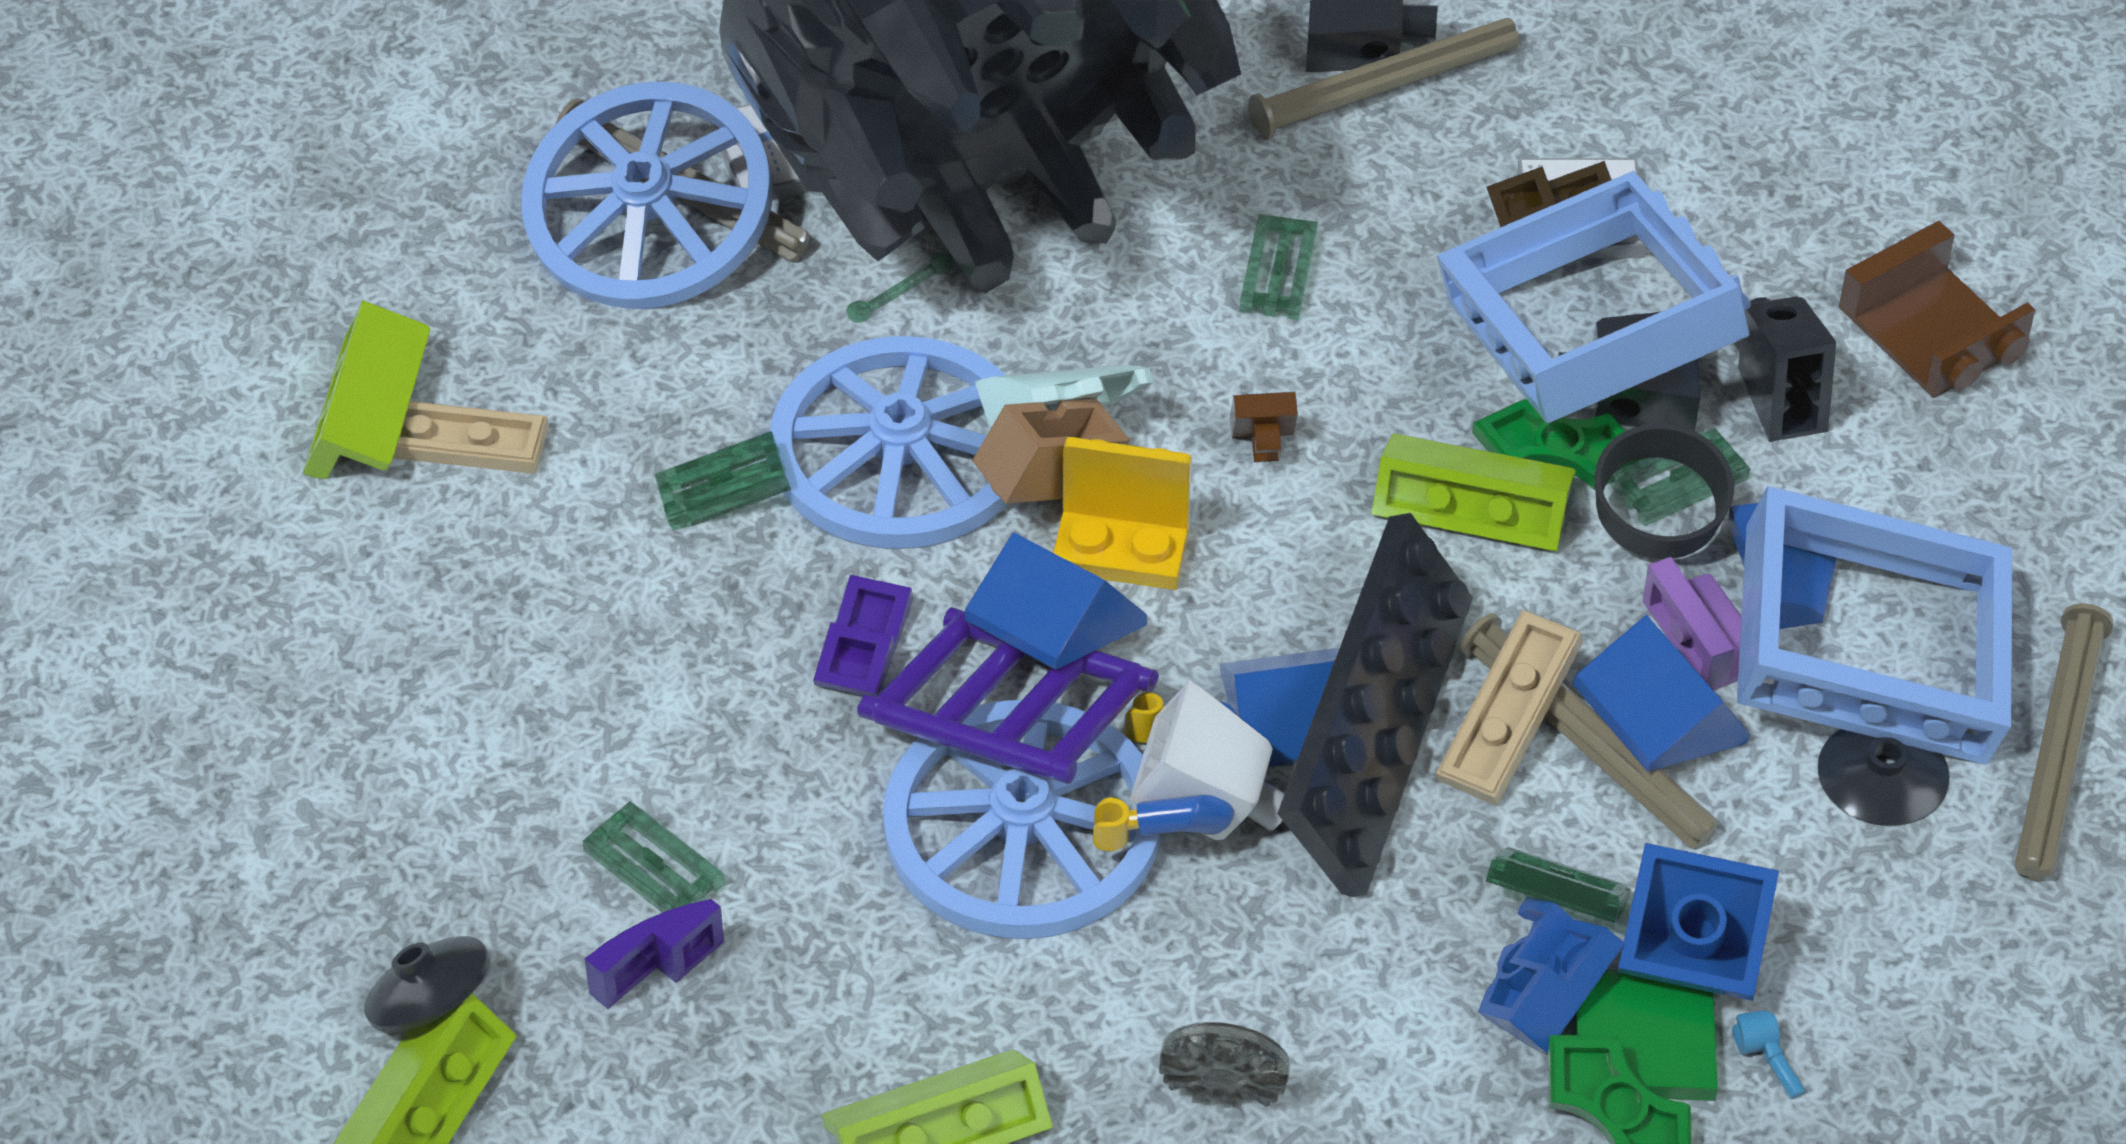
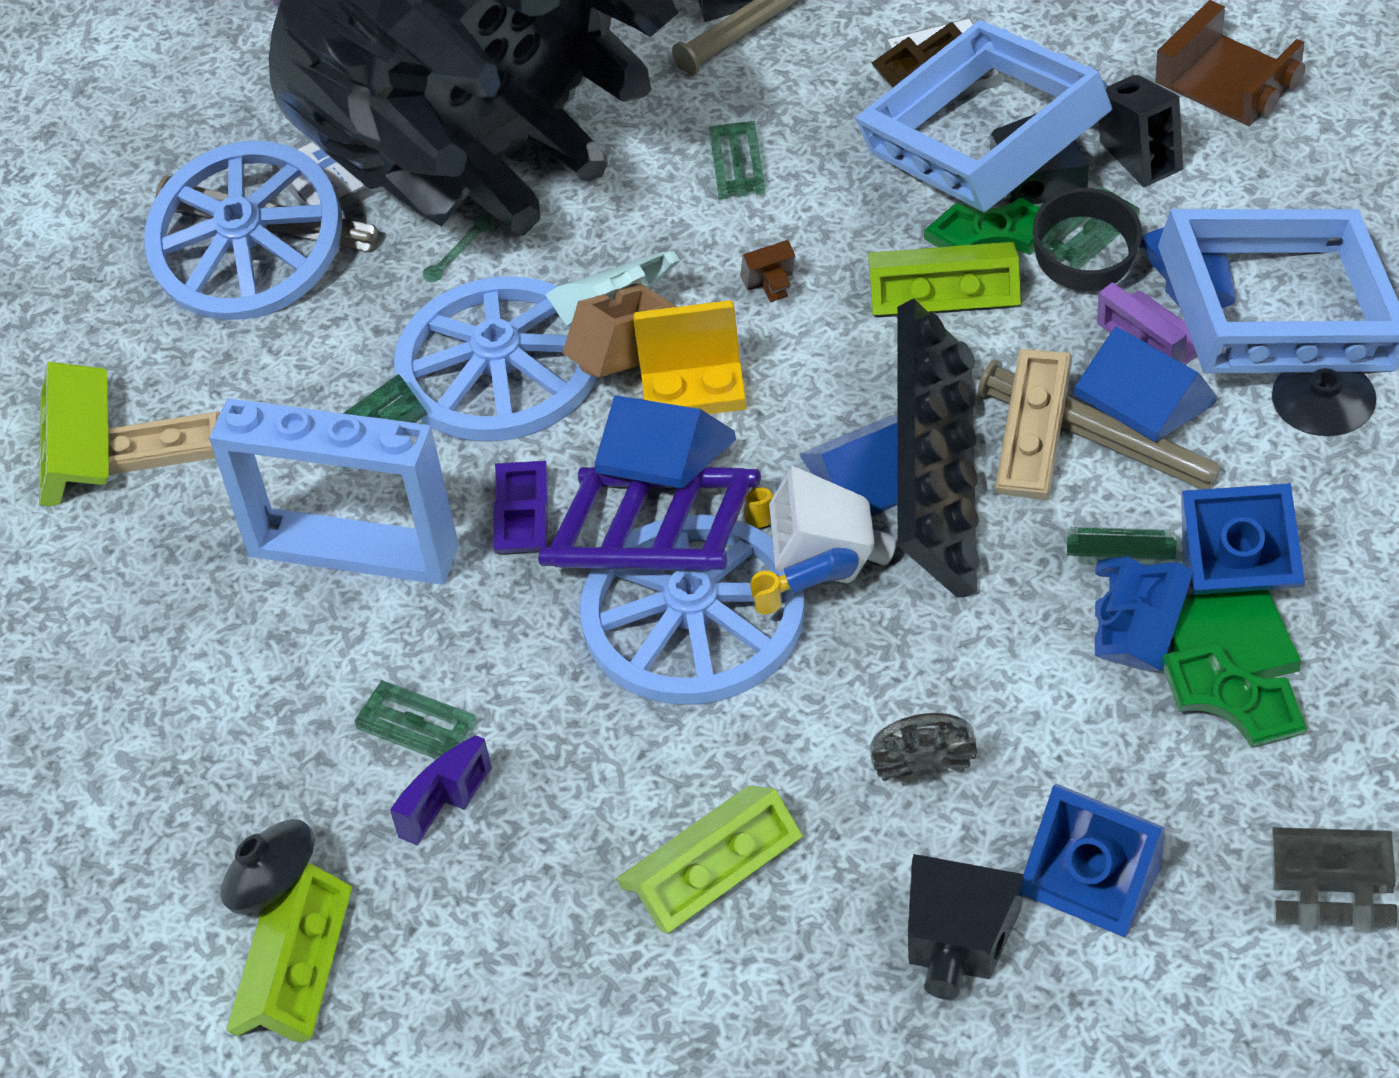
camera: 10 degrees left, 0 degrees up
(720, 656) = (342, 441): none -> light blue window
(1760, 1032) = (1316, 610): dark azure hand -> none

